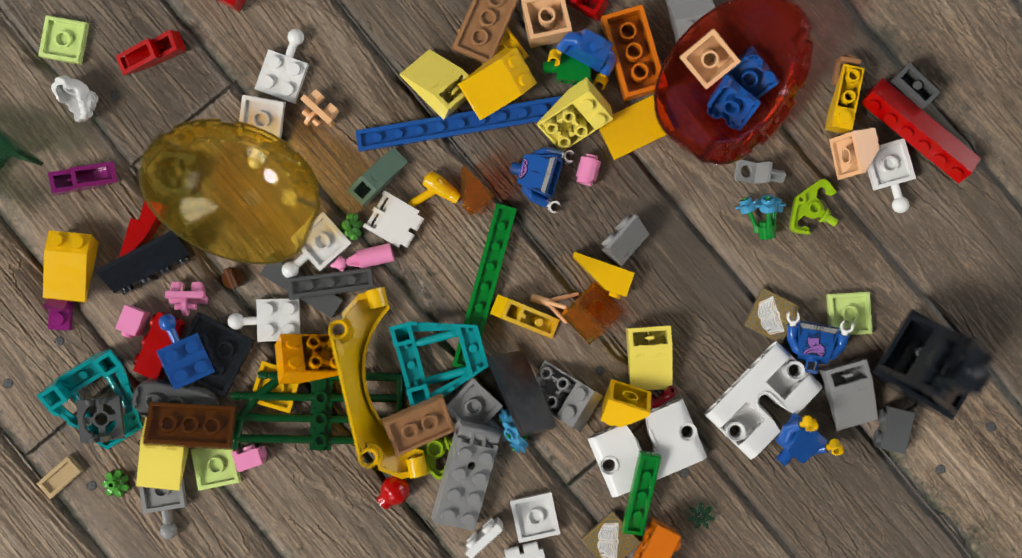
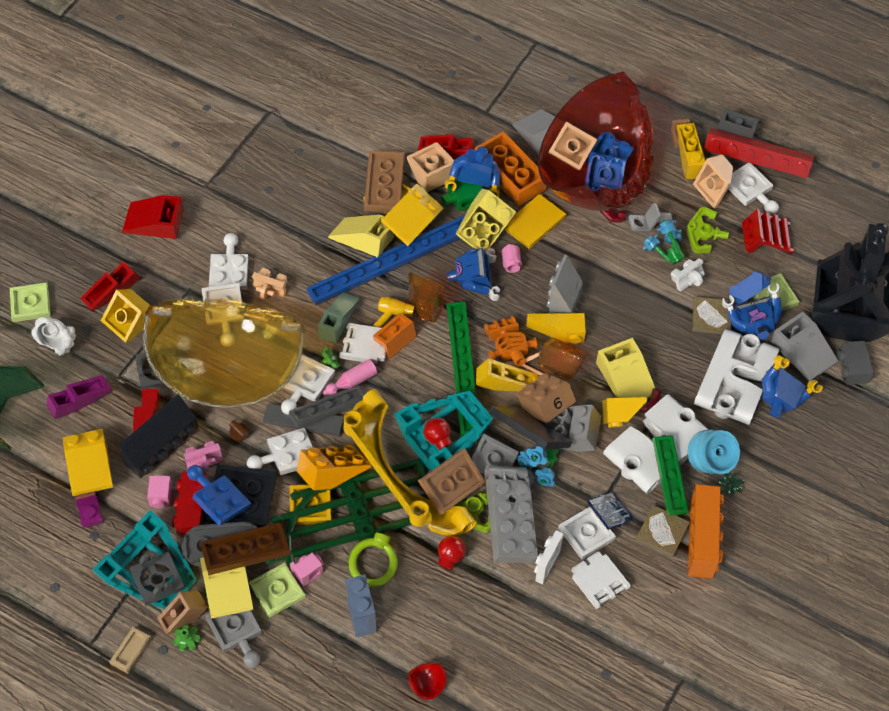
camera: 20 degrees left, 30 degrees down
(117, 459) = (182, 611): none -> medium nougat slope
(159, 95) = (125, 314): none -> yellow slope
(282, 524) = (360, 606): none -> sand blue window
(327, 458) = (382, 542): none -> lime piece
(426, 362) = (437, 432): none -> red piece
(427, 223) = (395, 334): none -> orange panel
(544, 288) = (508, 341): none -> orange piece
(553, 360) = (546, 397): none -> medium nougat brick
(567, 502) = (609, 510): none -> piece
(696, 485) = (713, 451): none -> medium azure wheel
(772, 262) = (689, 275): none -> white hips
(826, 310) = (750, 286): none -> slope
(870, 233) = (758, 232): none -> red plate

